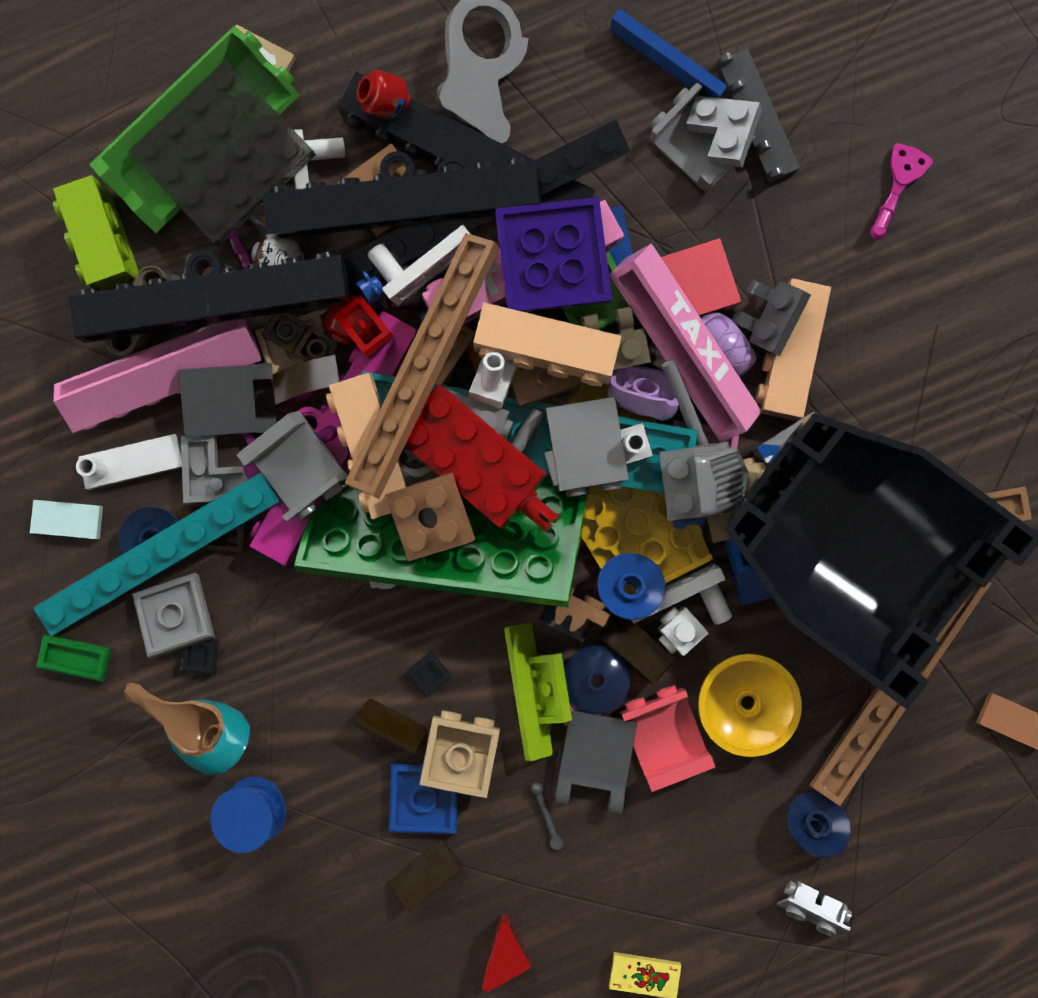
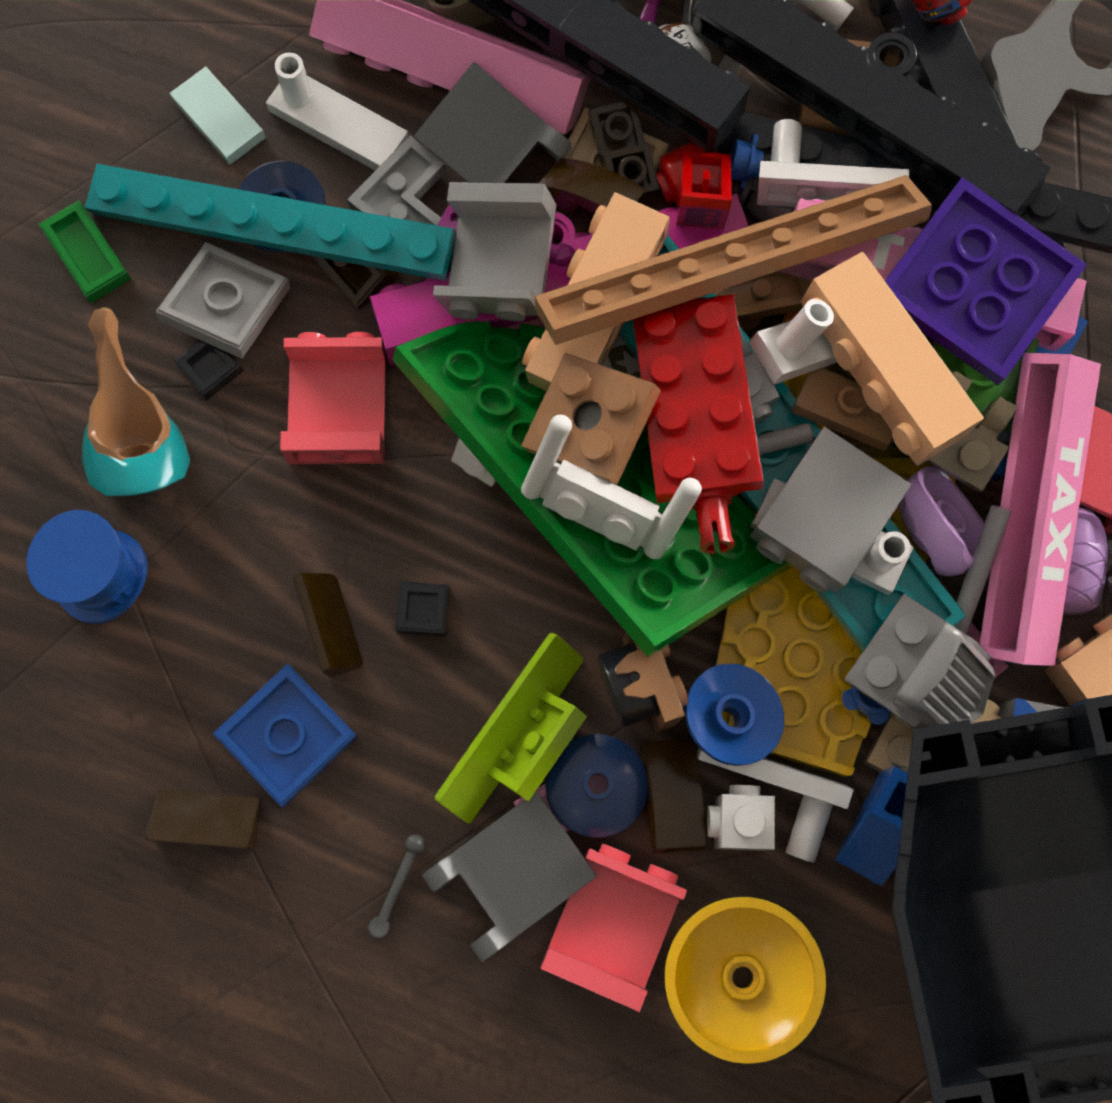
camera: 40 degrees right, 10 degrees down
(282, 612) = (335, 399): none -> coral panel
(460, 754) = (371, 721): tan plate -> none
(470, 557) = (601, 504): none -> white plate
(507, 956) = (200, 999): red slope -> none

